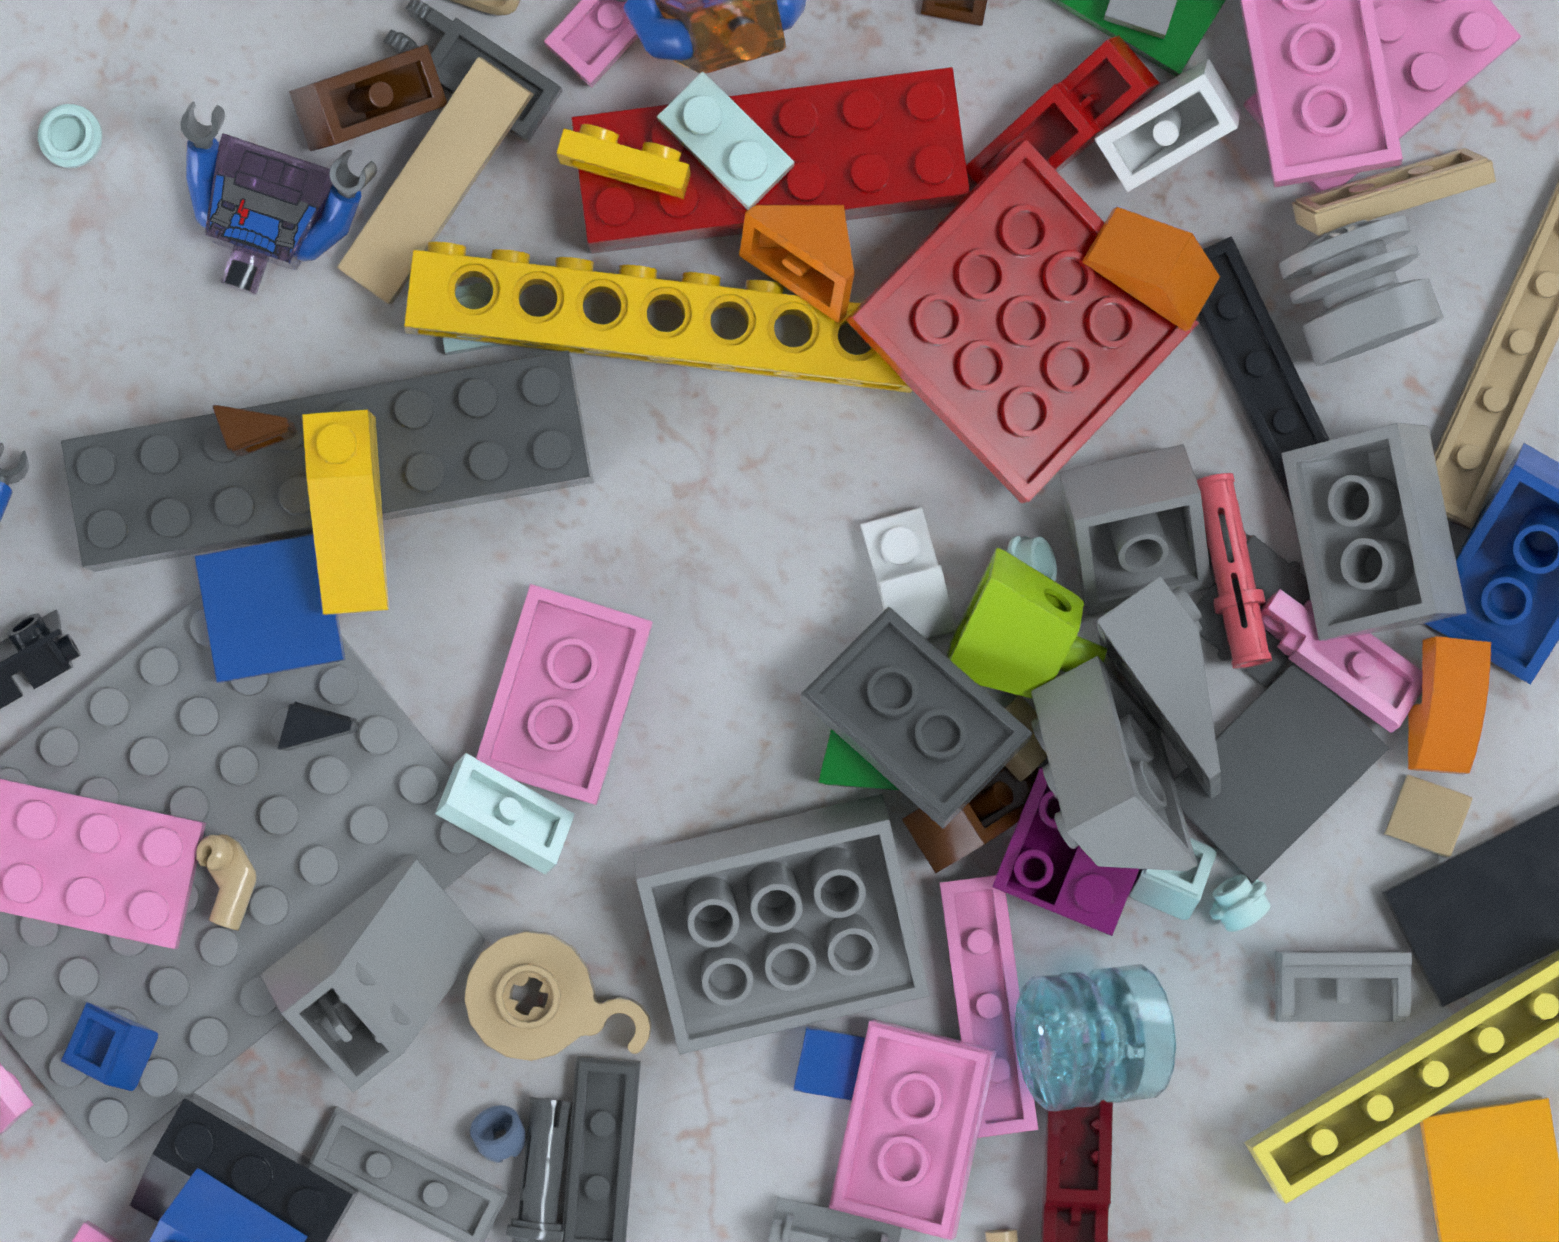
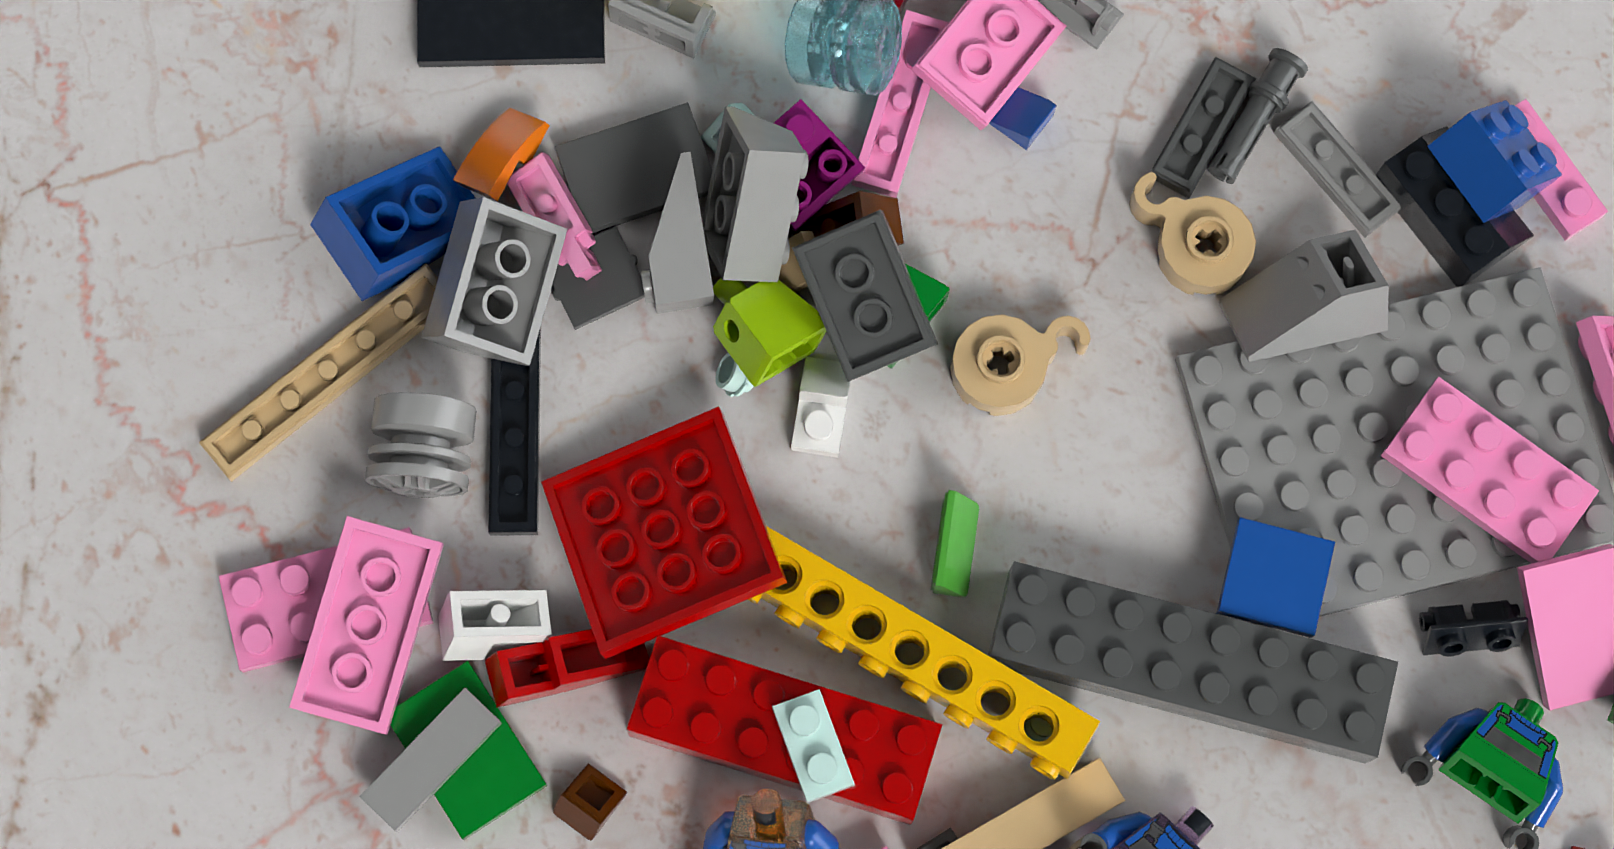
camera: 165 degrees left, 10 degrees down
(110, 1047) = (1509, 335): blue slope -> none
(232, 874) = (1377, 410): tan arm -> none
(250, 430) = (1241, 693): reddish brown slope -> none
(313, 725) = (1278, 479): black slope -> none
(346, 510) = (1197, 609): yellow slope -> none
(494, 1120) = (1275, 168): sand blue hinge -> none
(505, 813) = (1171, 367): light aqua plate -> none
(564, 694) = (1095, 432): bright pink plate -> none
(598, 152) = (875, 747): yellow plate -> none
(669, 478) = (955, 545): none -> bright green slope
(689, 756) = (1022, 347): none -> tan piece
(780, 924) = (1016, 216): light grey slope -> none
(803, 251) = (791, 645): orange slope -> none
(1134, 524) = (651, 365): light grey slope -> none
(1154, 265) = (555, 529): orange slope -> none
(1239, 902) = (703, 92): light aqua plate -> none
(1246, 644) = (615, 251): coral pin -> none
(1393, 191) = (379, 505): tan tile -> none
(1428, 816) = (549, 92): tan slope -> none

